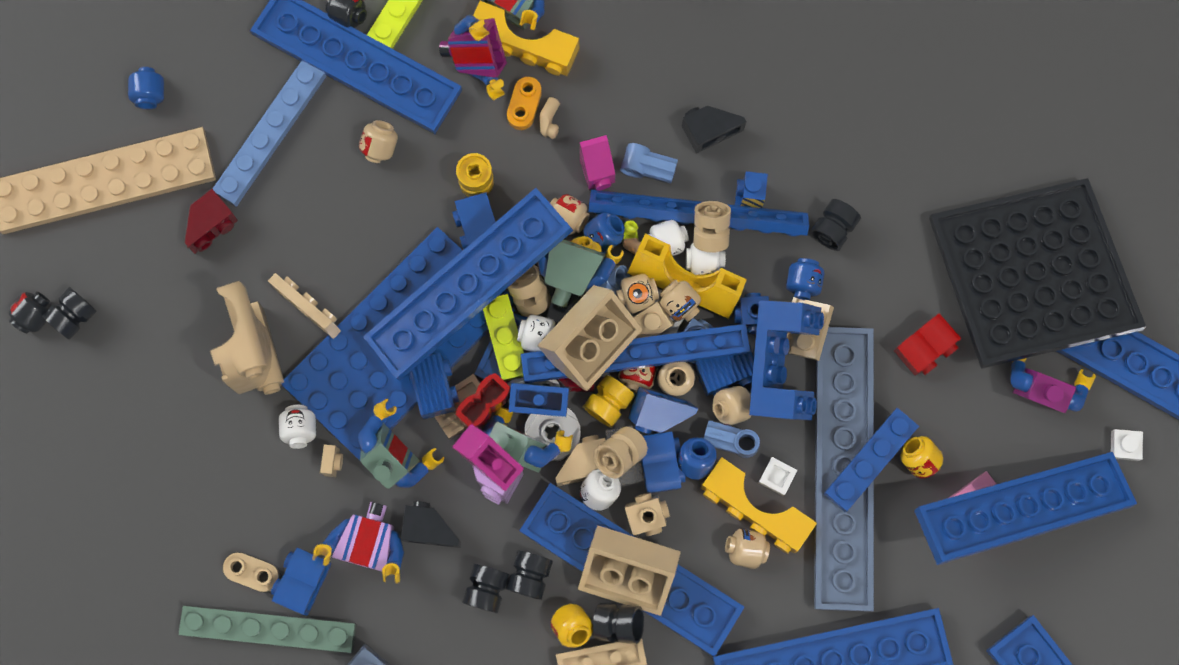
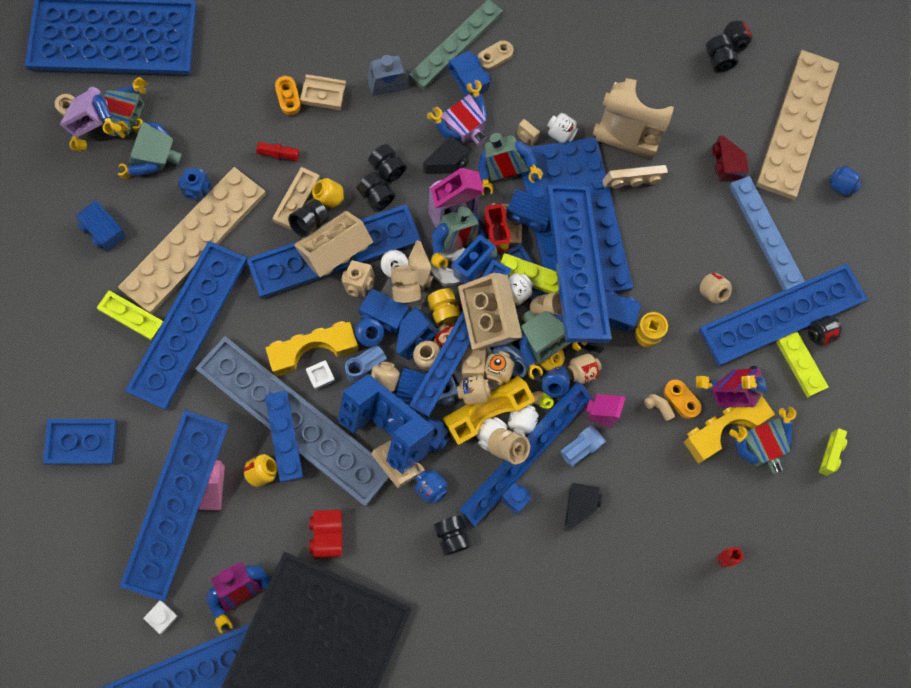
camera: 120 degrees right, 5 degrees down
(747, 548) = (291, 323): tan head -> none

